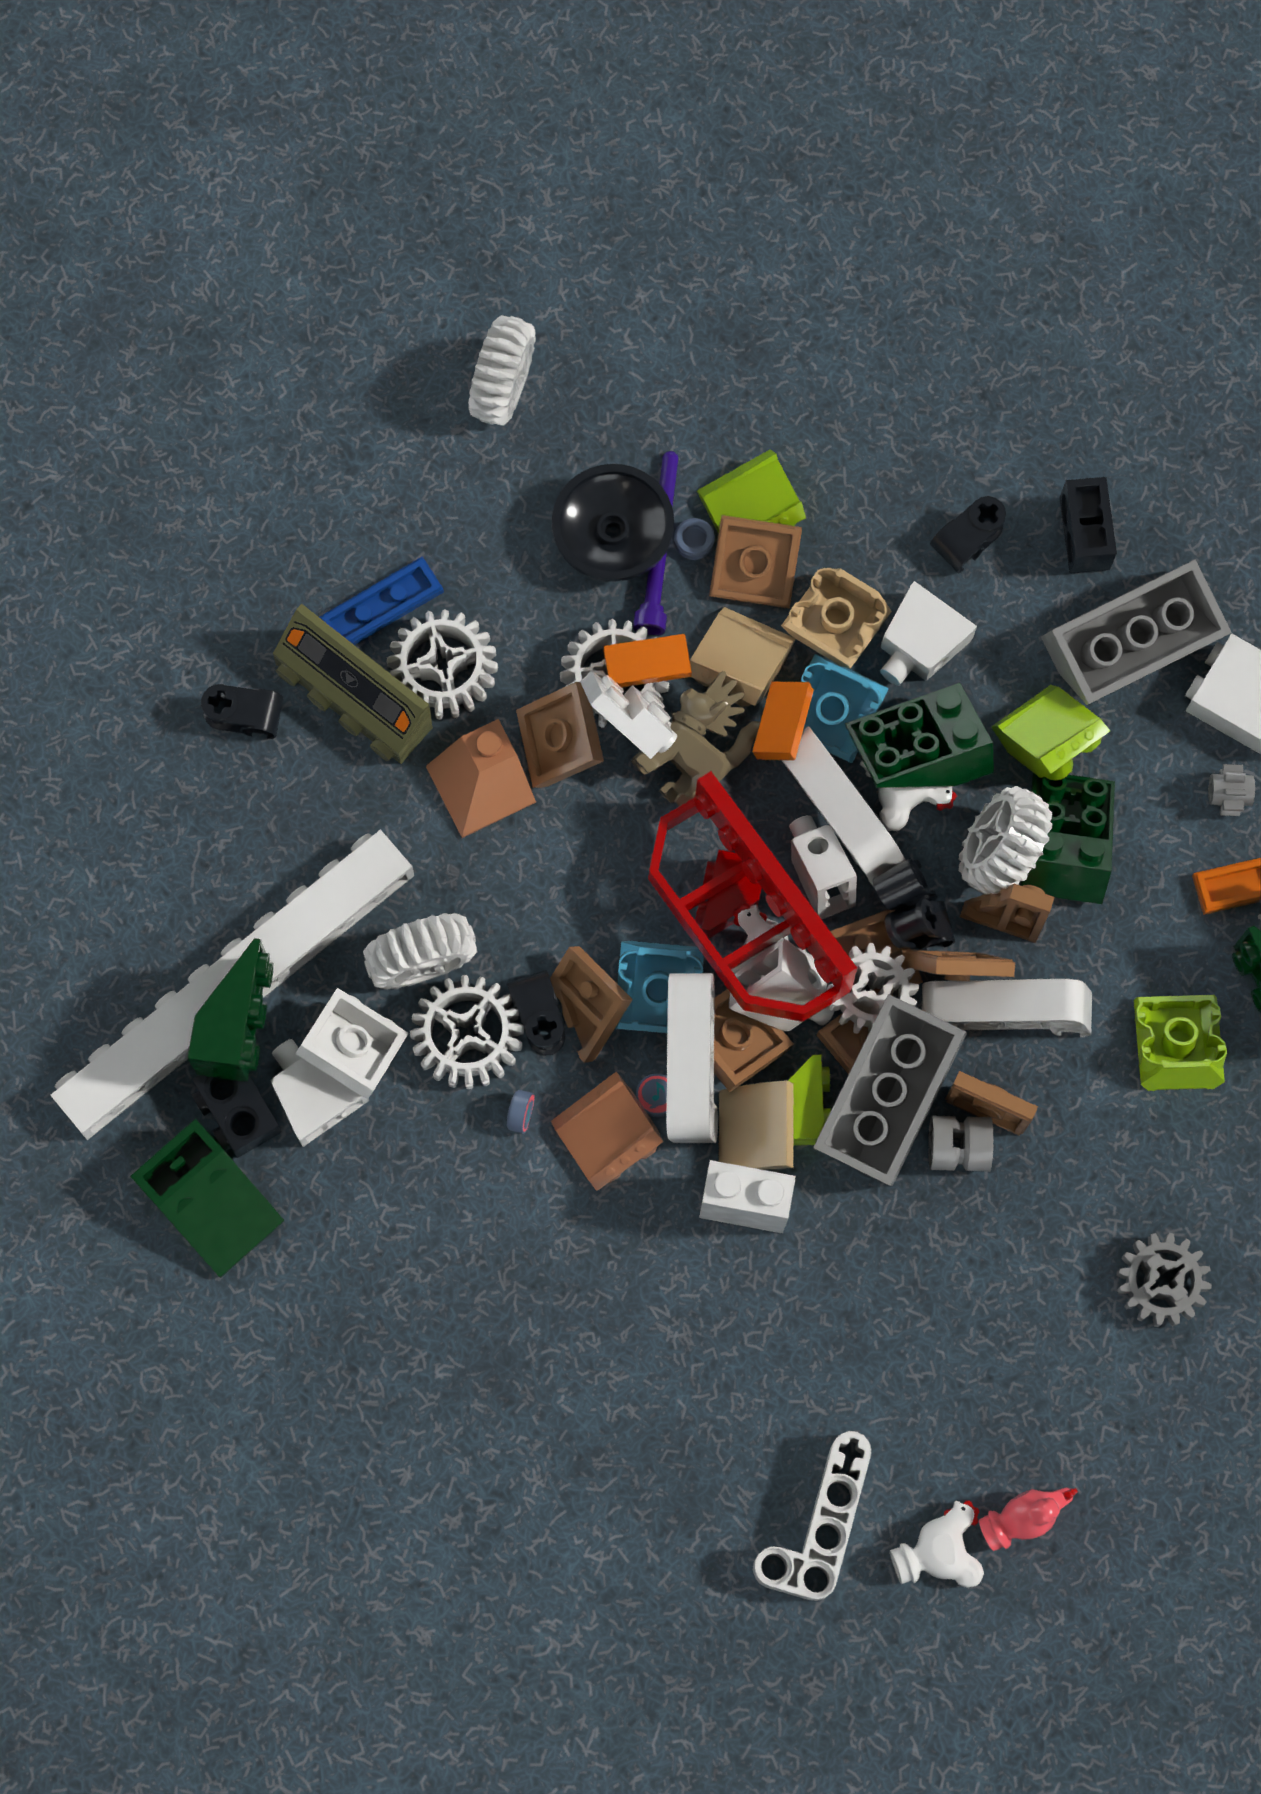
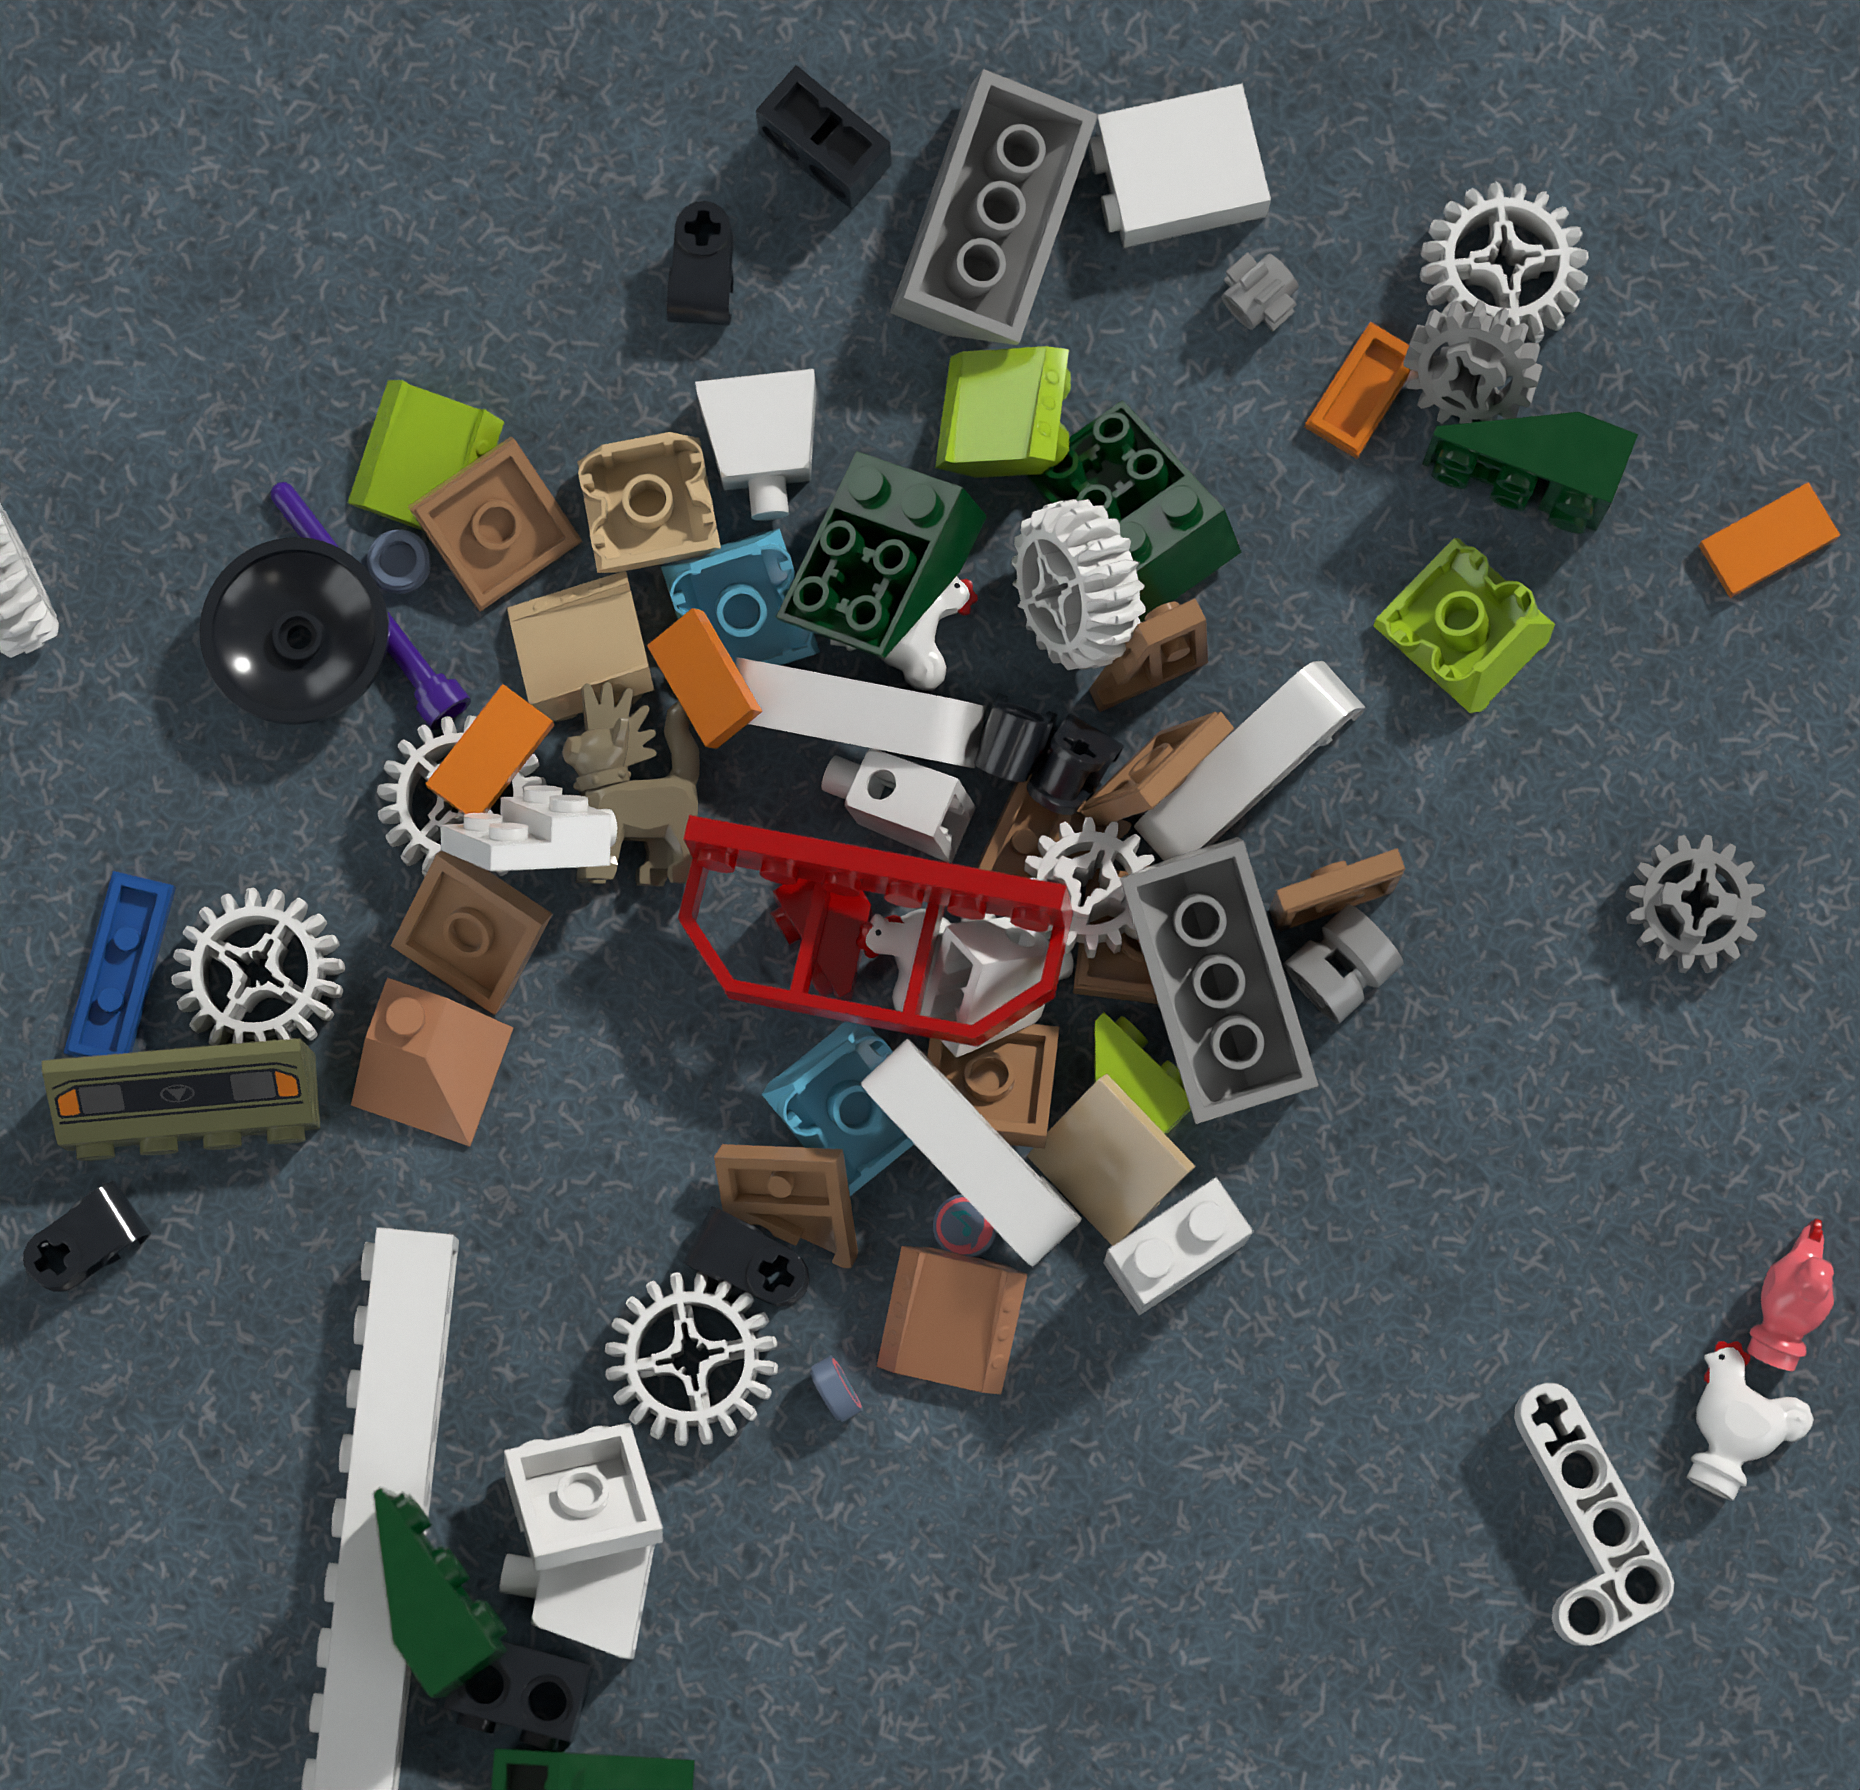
camera: 40 degrees left, 5 degrees up
(420, 951) = (555, 1321): white gear -> none

